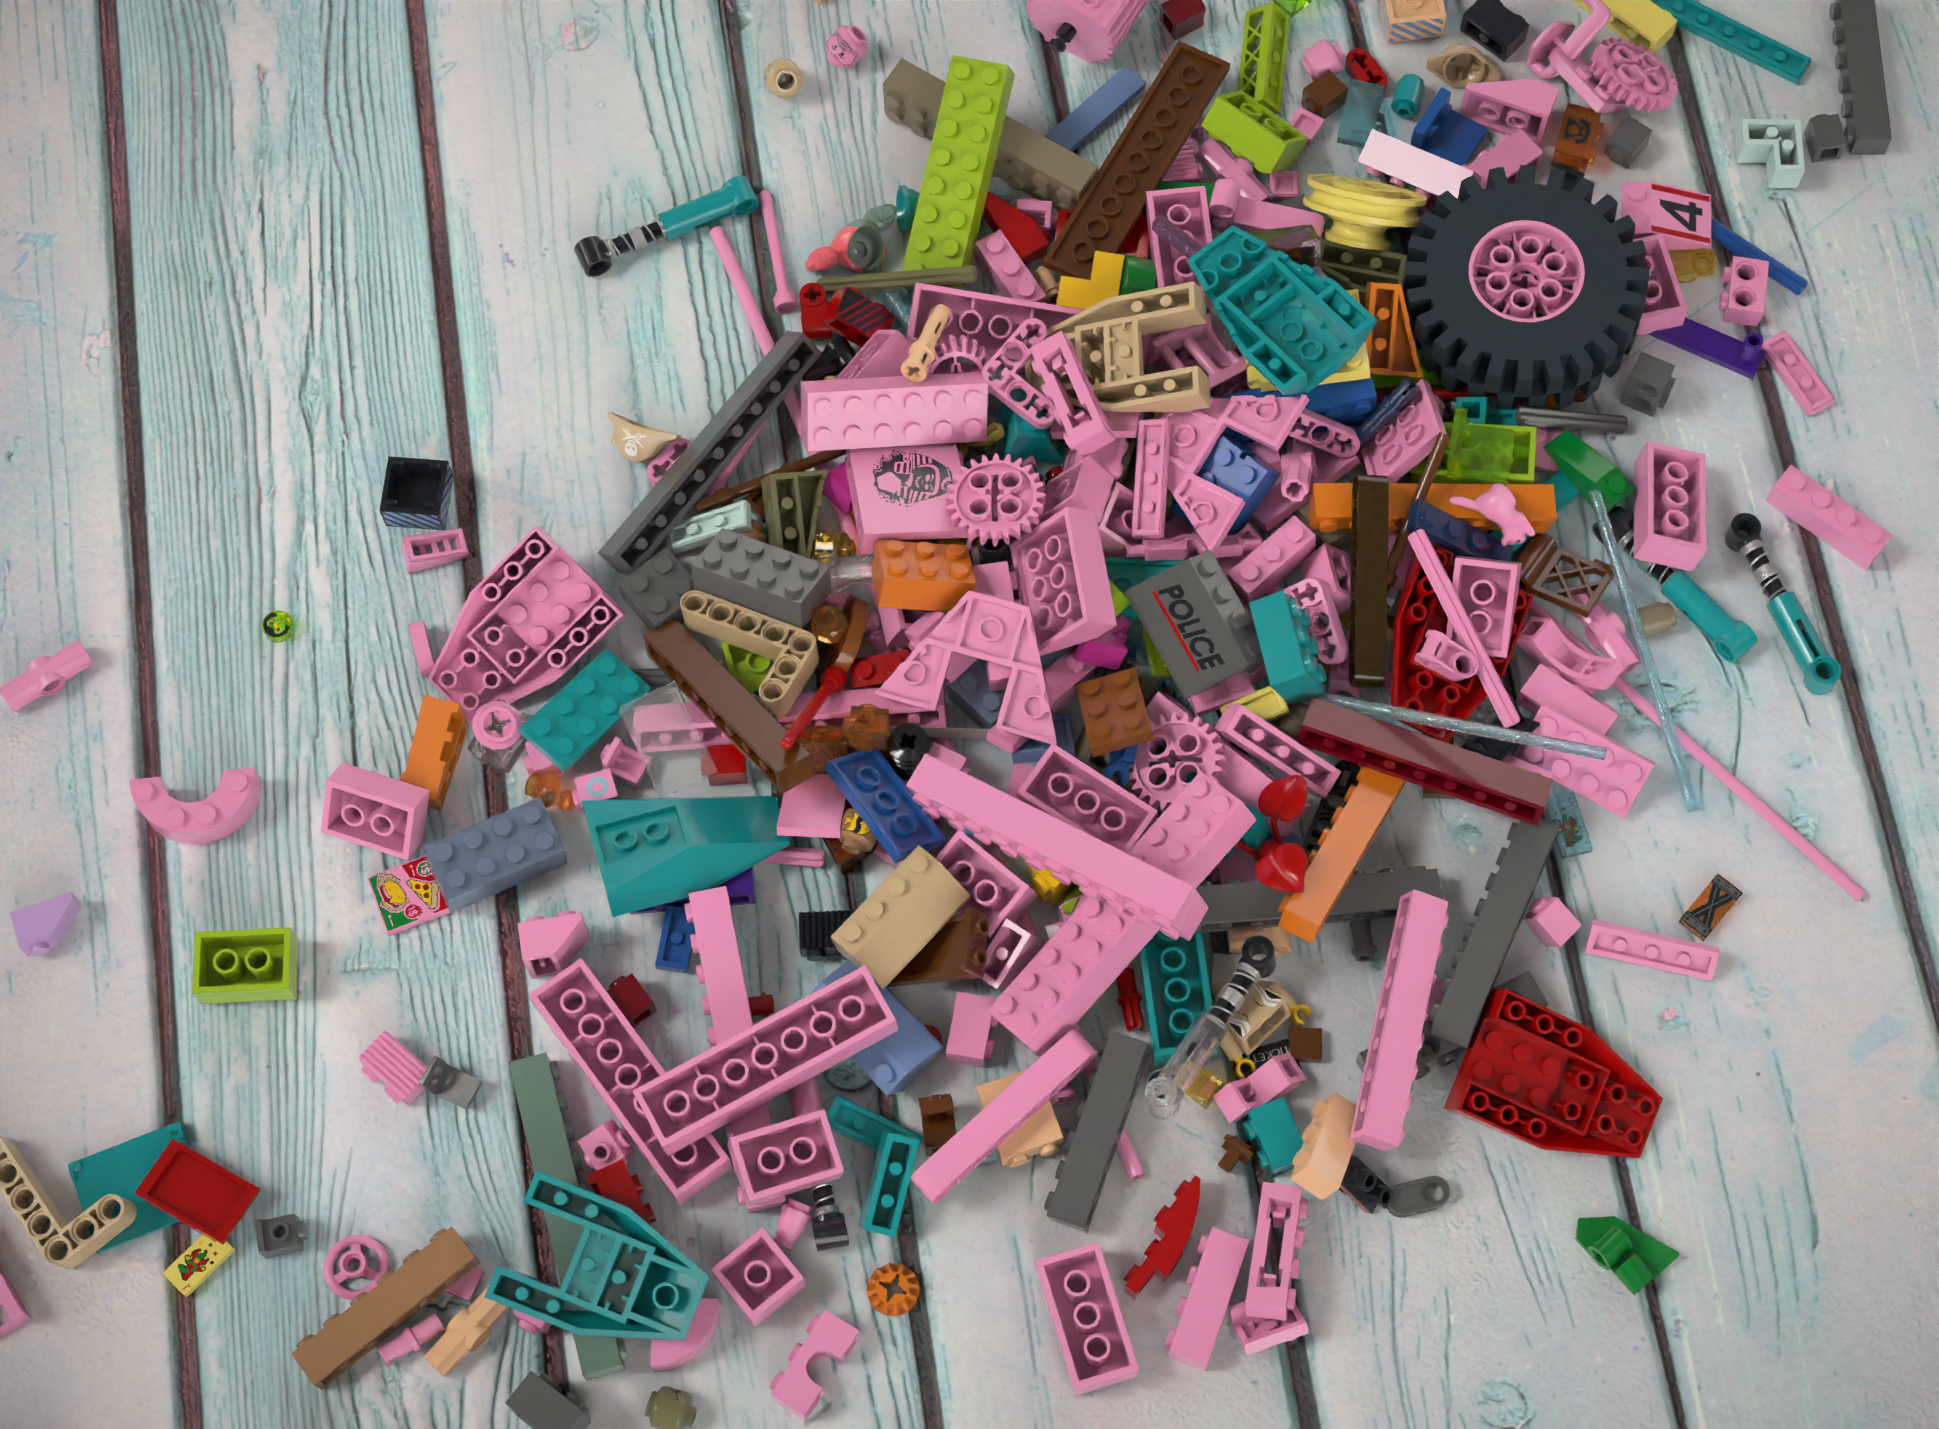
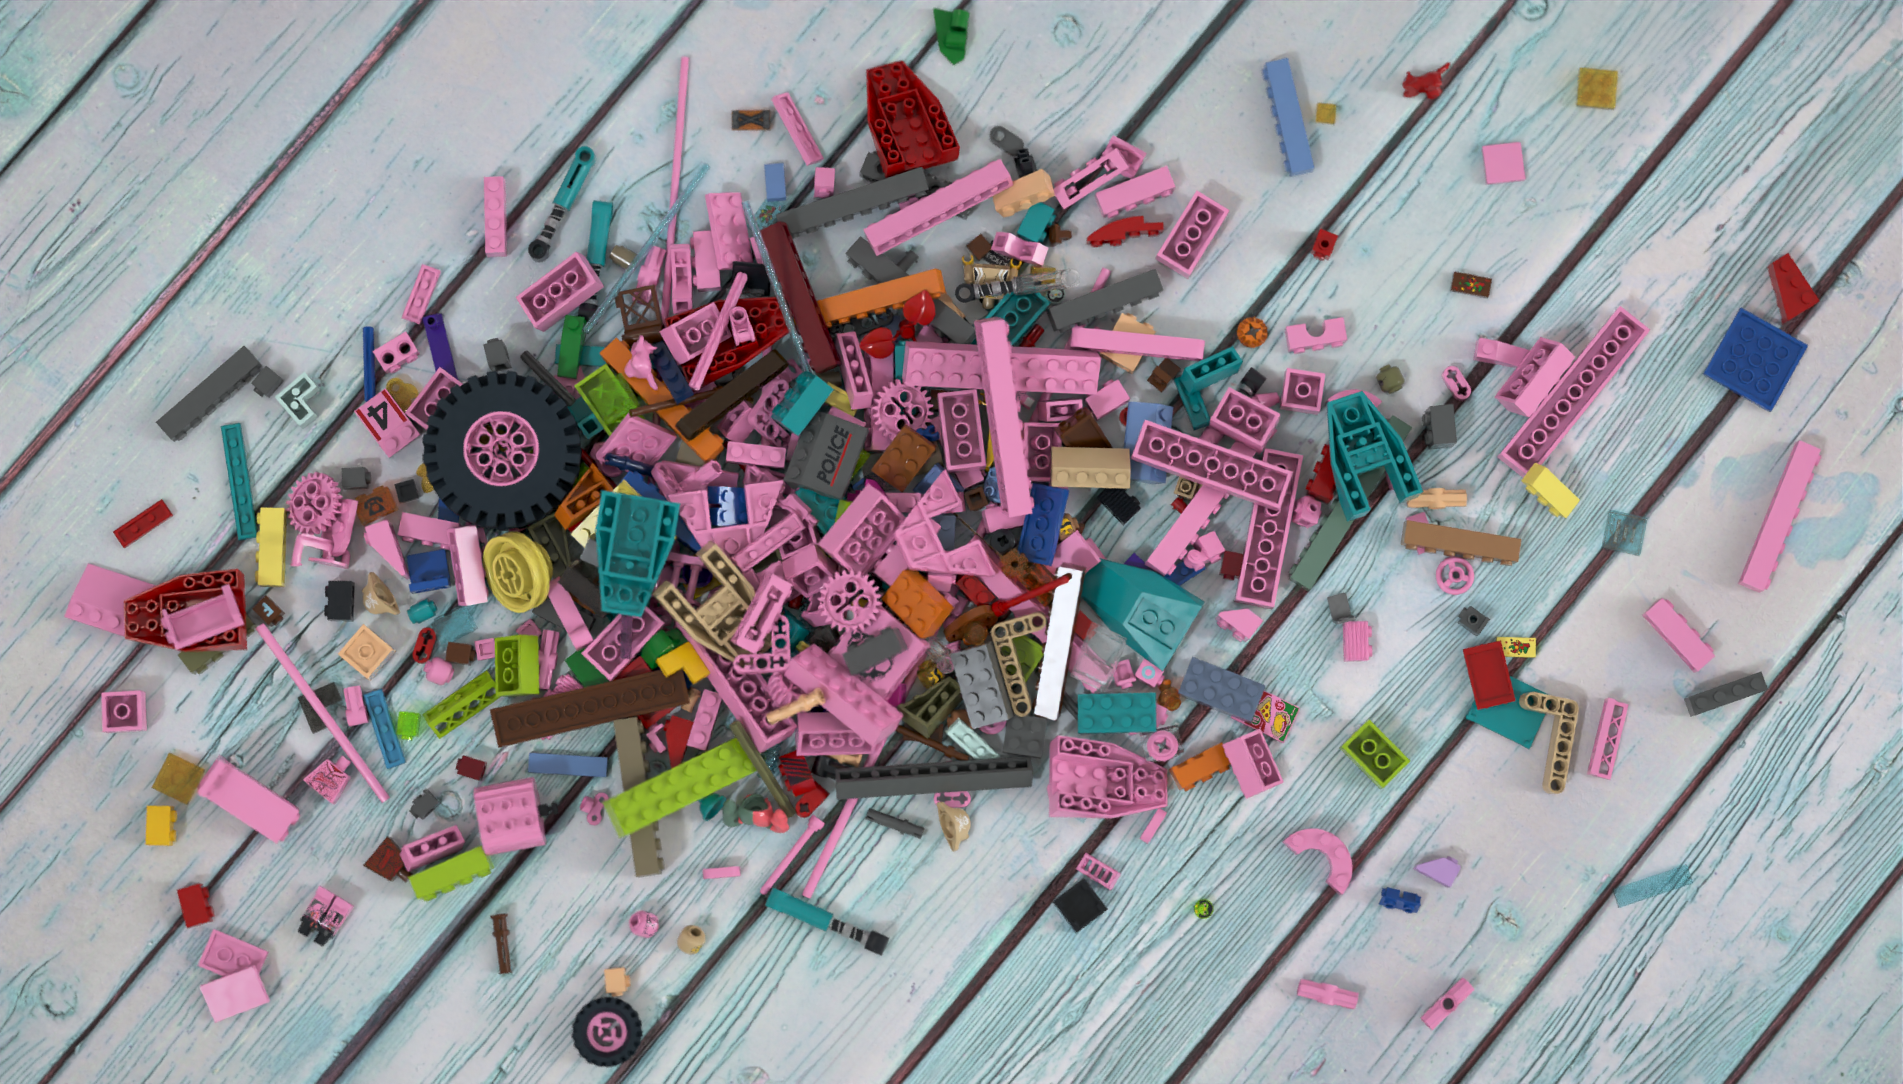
camera: 140 degrees left, 15 degrees up
(48, 856) = (1408, 903): none -> blue hinge
(411, 1339) = (1463, 520): bright pink pin -> none
(673, 986) = (1207, 549): none -> bright pink brick
(708, 378) = (900, 825): none -> dark grey pin
(826, 165) = (721, 872): none -> bright pink beam
(911, 479) = (874, 650): none -> dark grey brick
(990, 765) = (975, 499): none -> reddish brown brick
(1024, 101) = (593, 807): none -> bright pink piece
(1602, 867) = (775, 182): none -> medium blue tile

